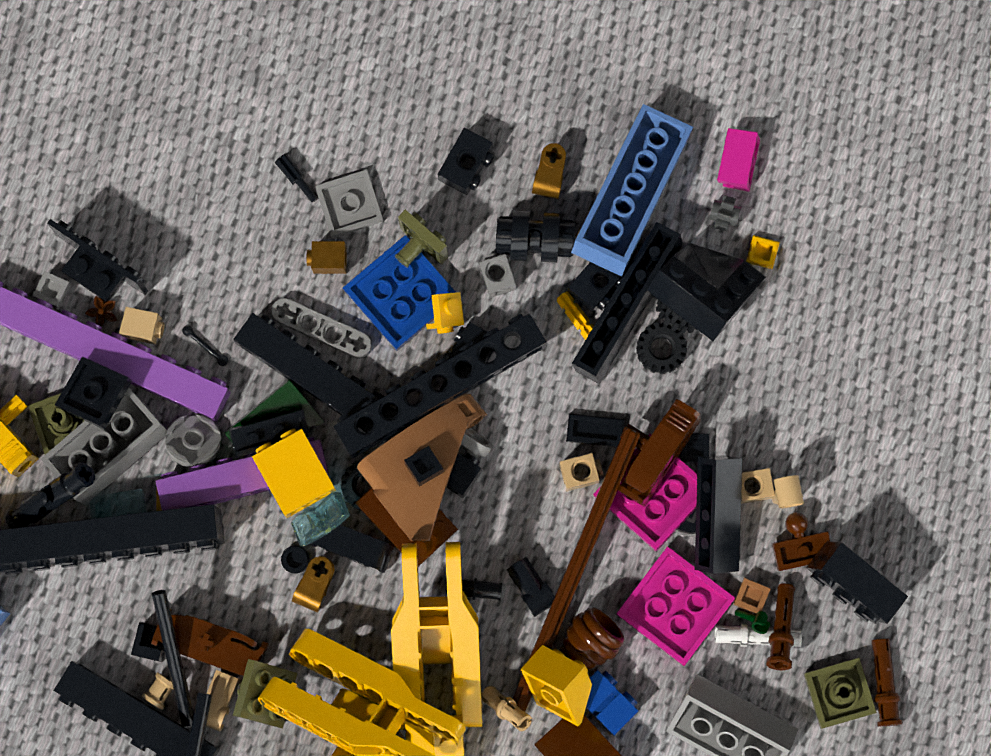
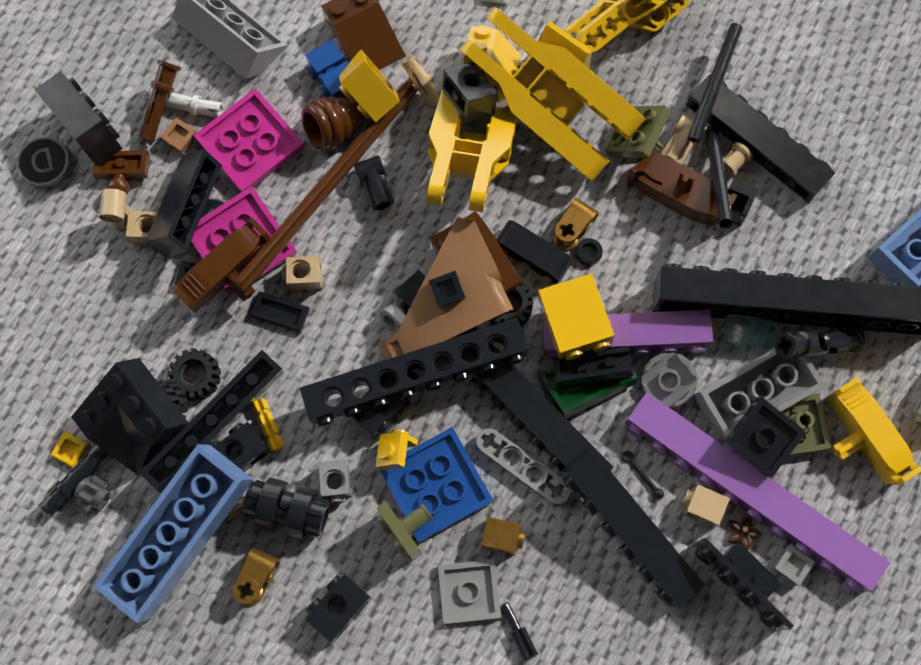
camera: 170 degrees left, 5 degrees down
(207, 285) = (632, 528): none -> black brick
(319, 521) = (556, 272): clear light blue slope -> none
(444, 675) = (469, 91): none -> black brick
(481, 589) = (420, 190): black axle -> none
(739, 159) = (60, 548): dark pink hinge -> none
(752, 216) = (67, 486): none -> black pin
(759, 620) = (176, 110): dark green hand -> none
(839, 693) = (128, 43): olive plate -> none
(887, 538) = (43, 162): none -> black tile
(887, 696) = (88, 32): reddish brown pin -> none

